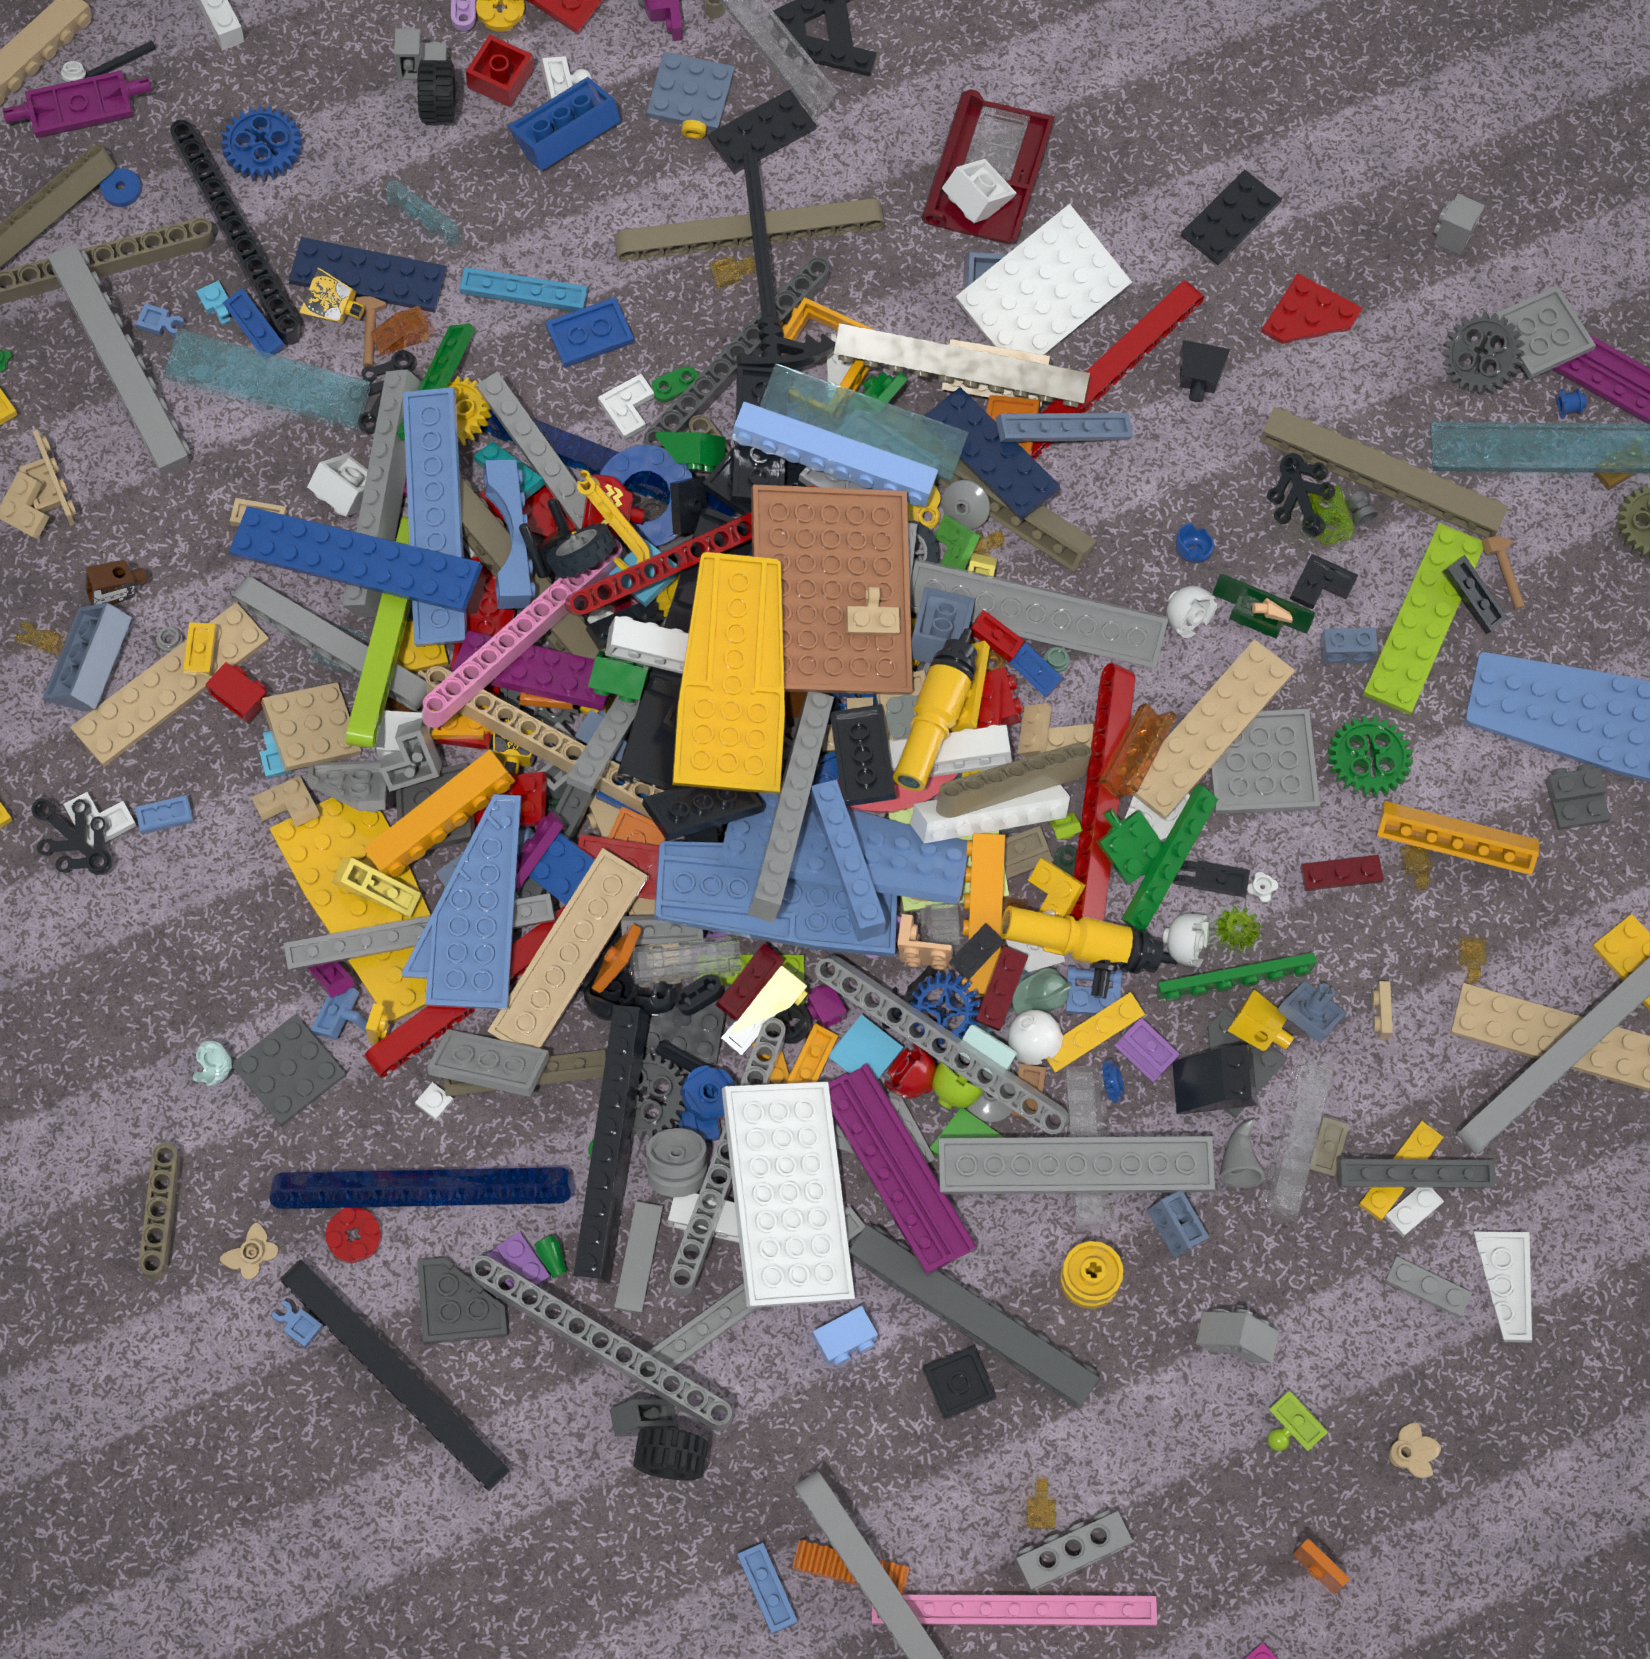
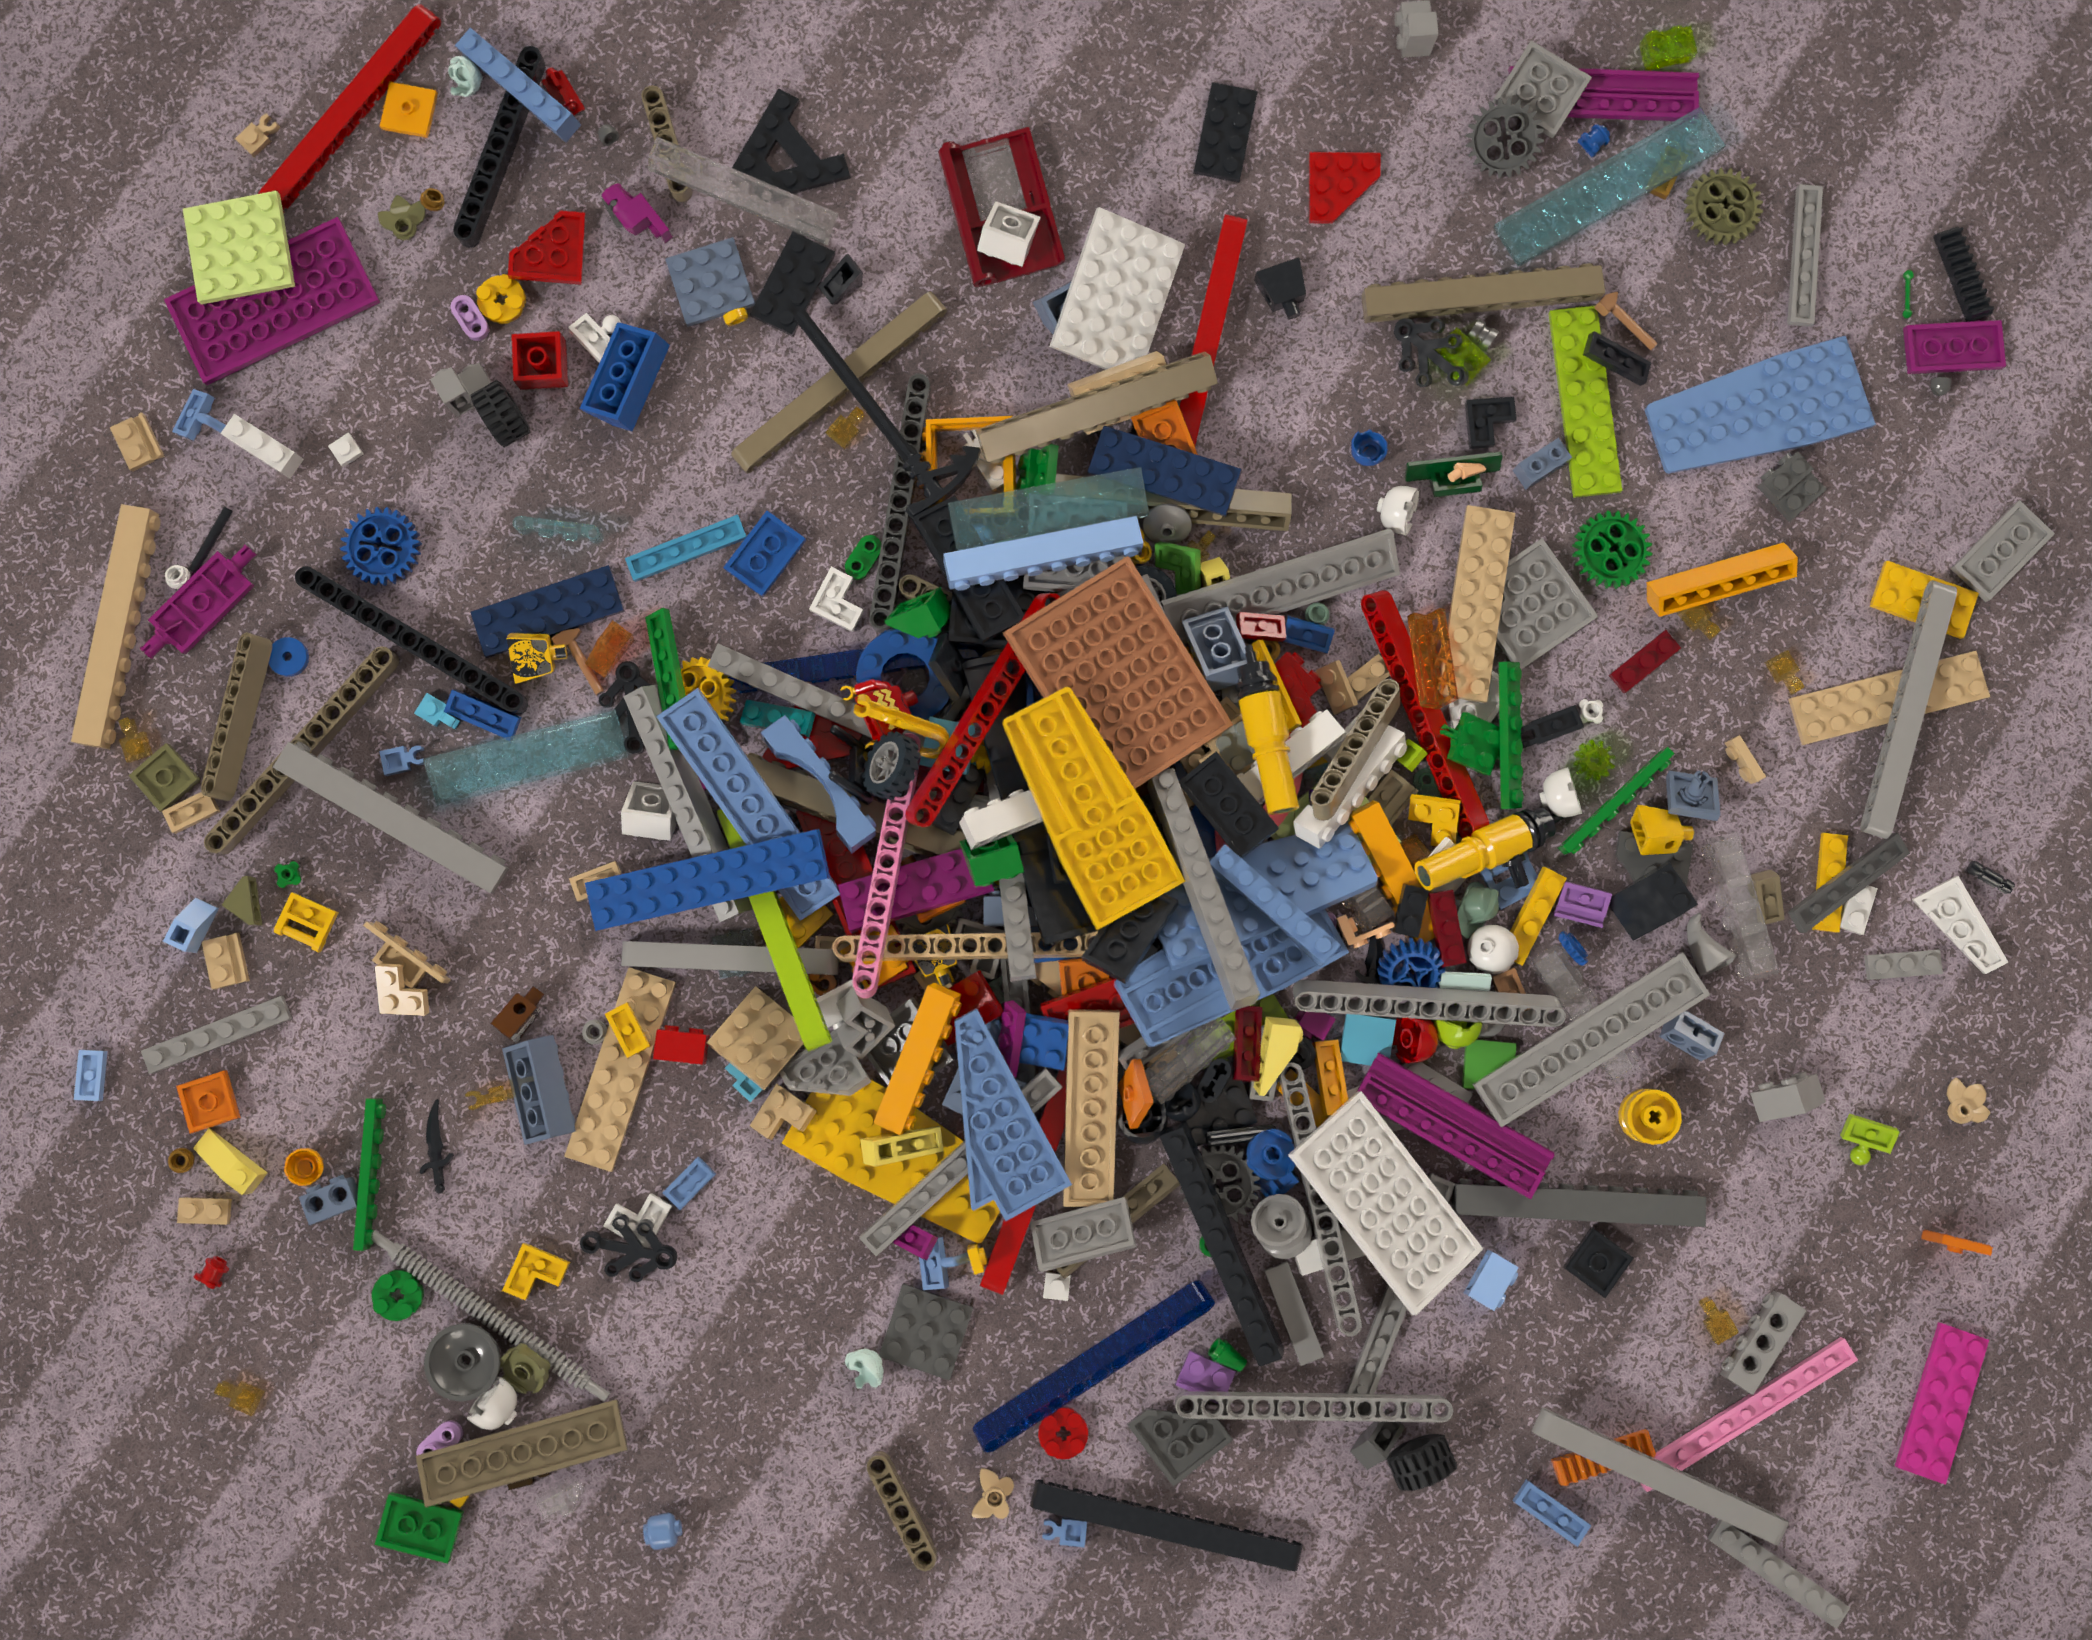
camera: 30 degrees left, 15 degrees up
(285, 53) = (345, 450): none -> white plate
(806, 148) = (841, 280): none -> black slope
(871, 618) = (1167, 684): tan plate -> none
(1064, 427) = (1209, 411): sand blue plate -> none
(1563, 1256) = (1990, 877): none -> black axle

